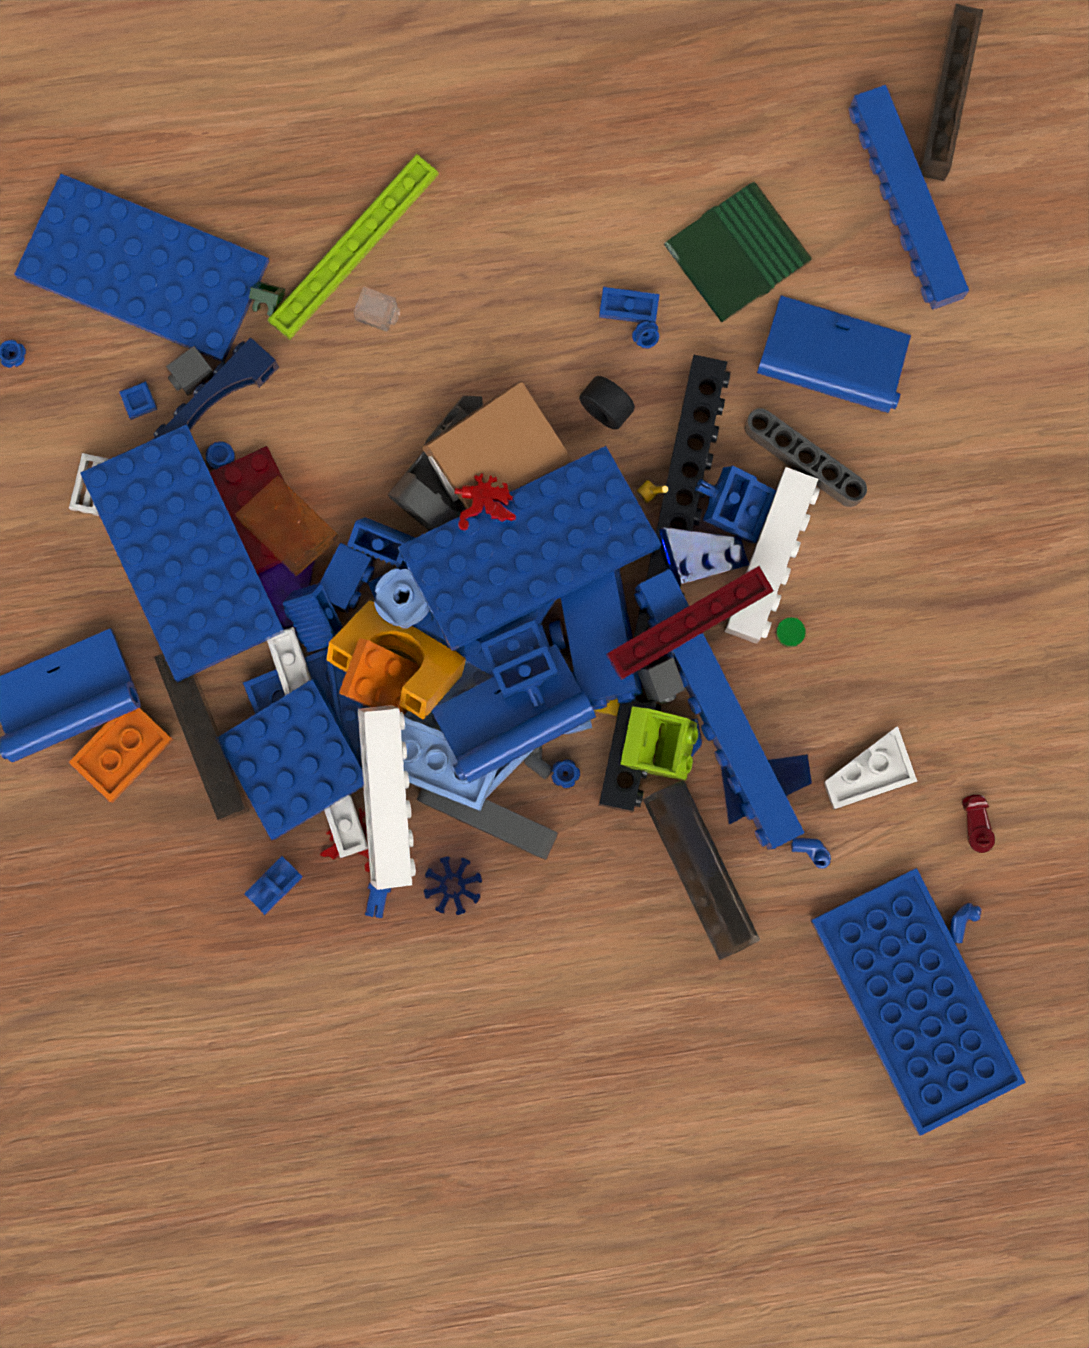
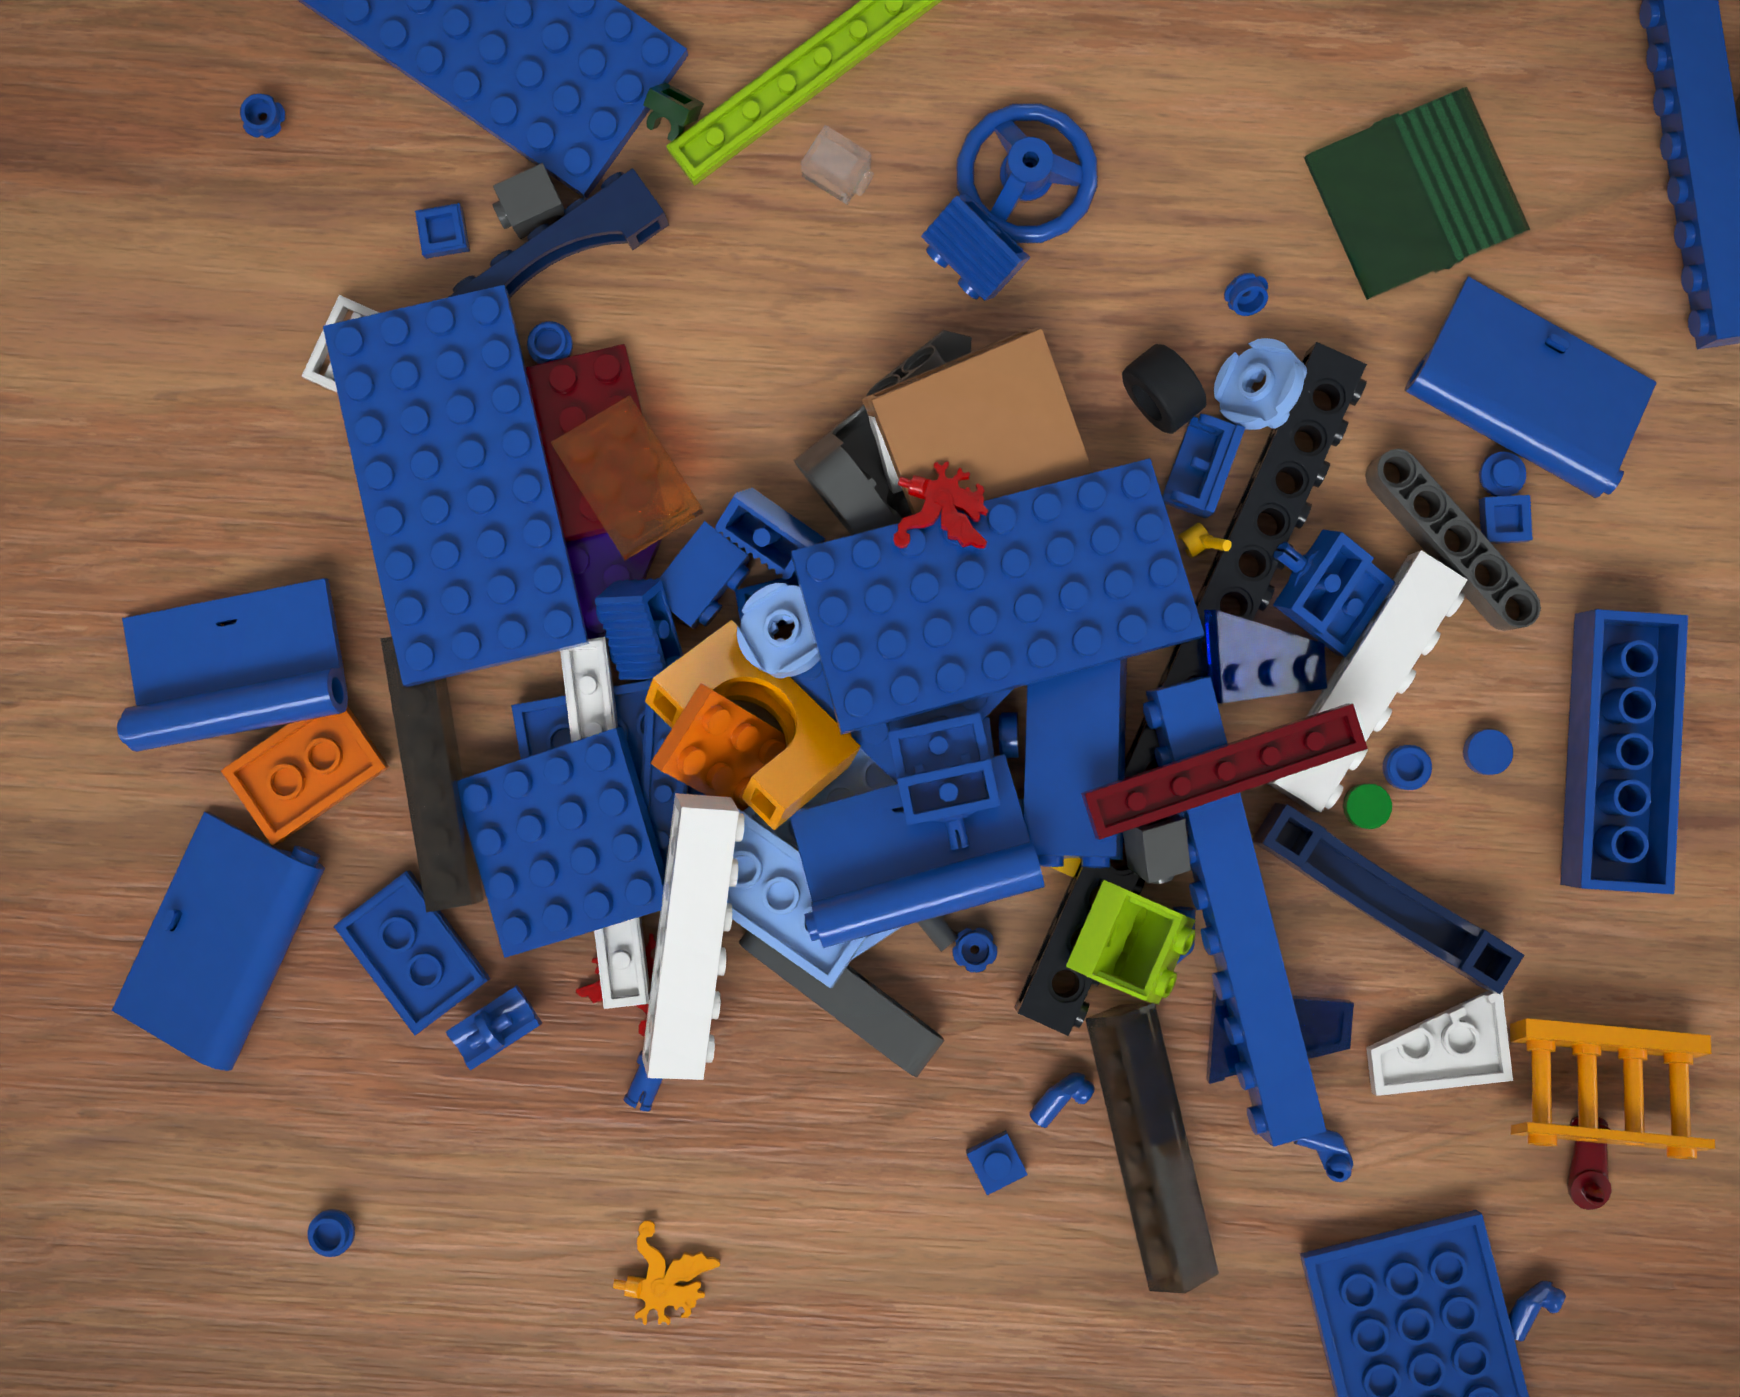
camera: 15 degrees right, 5 degrees up
(87, 870) = (218, 941): none -> blue door
(196, 1040) = (331, 1233): none -> blue plate
(211, 852) = (411, 953): none -> blue tile
(411, 1027) = (661, 1289): none -> light orange piece
(444, 889) = (768, 1102): clear blue gear -> none
(471, 341) = (974, 248): none -> blue brick
(494, 289) = (1031, 169): none -> blue piece
(608, 904) = (996, 1162): none -> blue plate
(628, 305) = (1230, 242): blue plate -> none
(636, 853) = (1058, 1095): none -> blue arm
(641, 444) = (1202, 465): none -> blue hinge
(674, 397) = (1275, 399): none -> light blue plate
(810, 603) = (1407, 767): none -> blue tile
(828, 411) = (1502, 474): none -> blue plate
(836, 437) = (1506, 519): none -> blue plate
(842, 696) = (1387, 899): none -> dark blue arch
(858, 583) = (1488, 752): none -> blue tile
(938, 563) = (1624, 751): none -> blue brick
(986, 743) = (1633, 1048): none -> light orange fence

